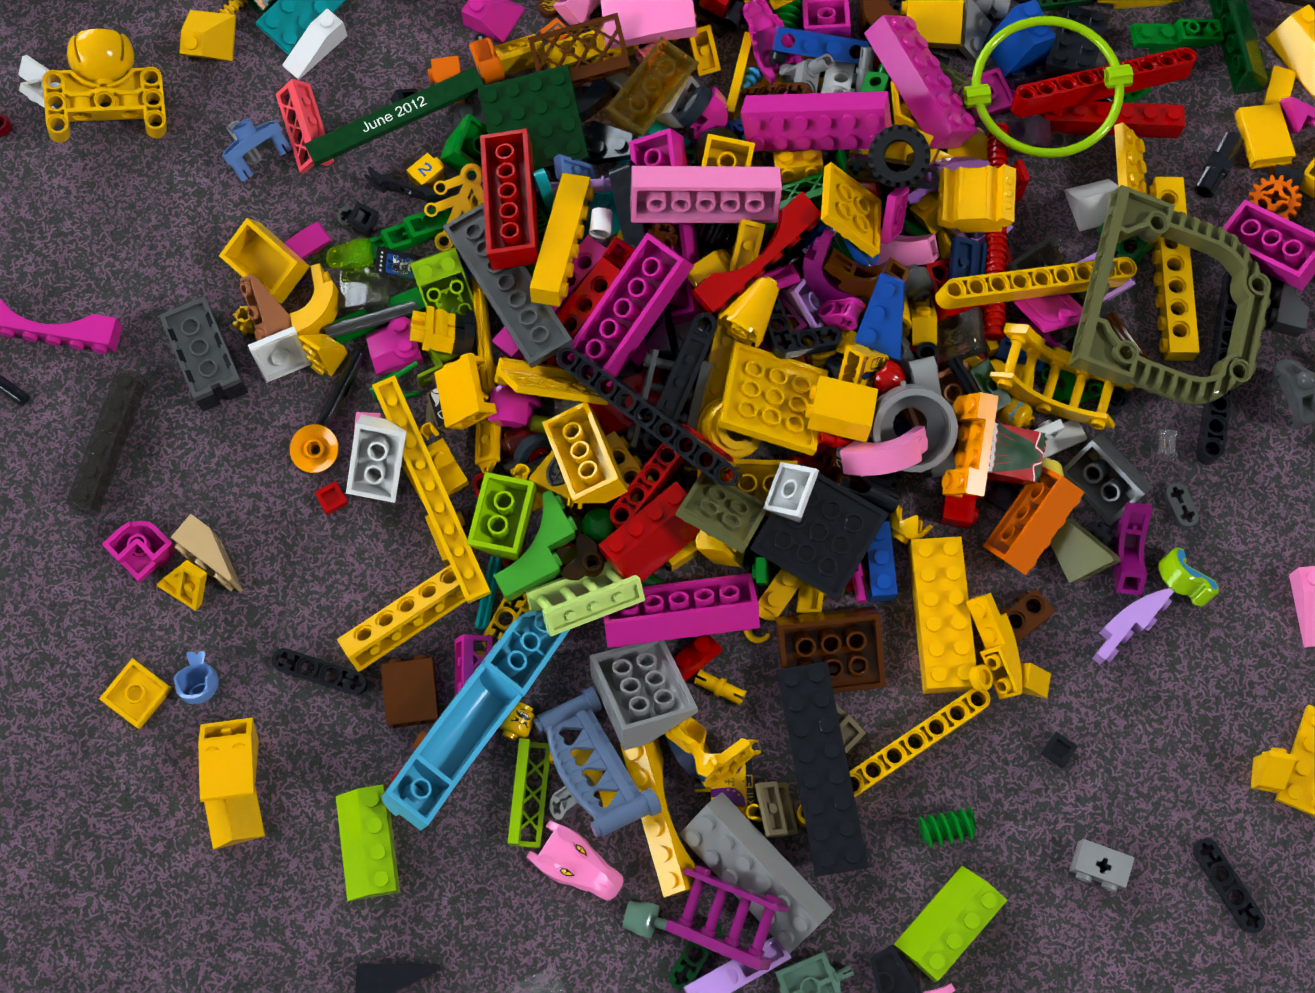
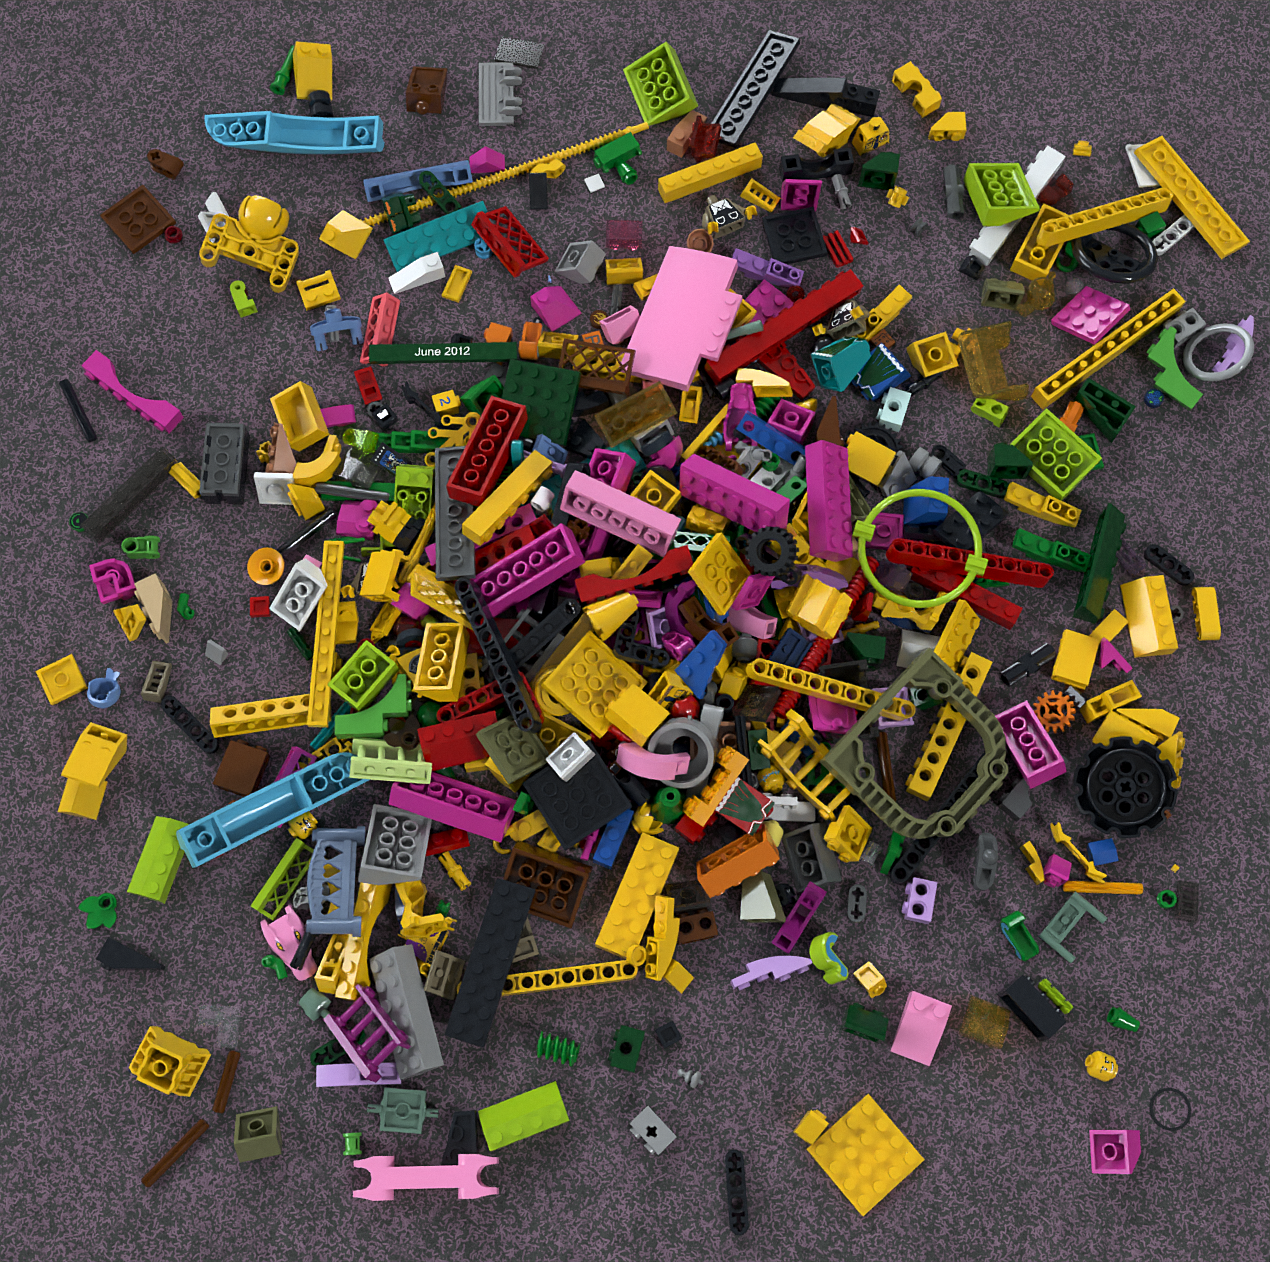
camera: 25 degrees right, 0 degrees up
(57, 502) = (76, 520): none -> black tile
(125, 166) = (240, 293): none -> lime leg
(154, 494) = (145, 547): none -> bright green piece
(166, 394) = (186, 479): none -> yellow axle
(212, 118) = (320, 295): none -> yellow plate
(239, 542) = (182, 607): none -> green arm
(257, 656) = (153, 693): none -> dark tan slope
(306, 574) = (215, 652): none -> light grey slope
(323, 193) = (368, 385): none -> red slope
(326, 943) = (97, 912): none -> green plate
(365, 37) = (456, 283): none -> yellow tile
(401, 517) = (300, 643): none -> dark green axle
(571, 895) = (276, 964): none -> green arm
(595, 852) = (304, 948): none -> black pin
(639, 861) = (330, 966): none -> yellow slope
(731, 736) = (443, 908): none -> green bush
(833, 74) = (773, 465): none -> green bush
(921, 495) = (668, 804): none -> green cone
(1002, 582) = (688, 897): none -> clear smoke slope
(1022, 208) = (862, 628): none -> yellow bar
(1027, 774) = (626, 1061): none -> dark green brick
(1040, 223) = (865, 647): none -> dark green slope
(1067, 170) = (907, 616): none -> yellow hips
(1107, 785) = (695, 1079): none -> light grey hair
(1134, 434) = (848, 835): none -> yellow plate
(1189, 428) = (893, 851): none -> green wing
(1242, 579) = (870, 979): none -> yellow bracket
(1254, 468) = (925, 901): none -> lavender brick
(1265, 629) = (865, 1023): none -> dark green slope

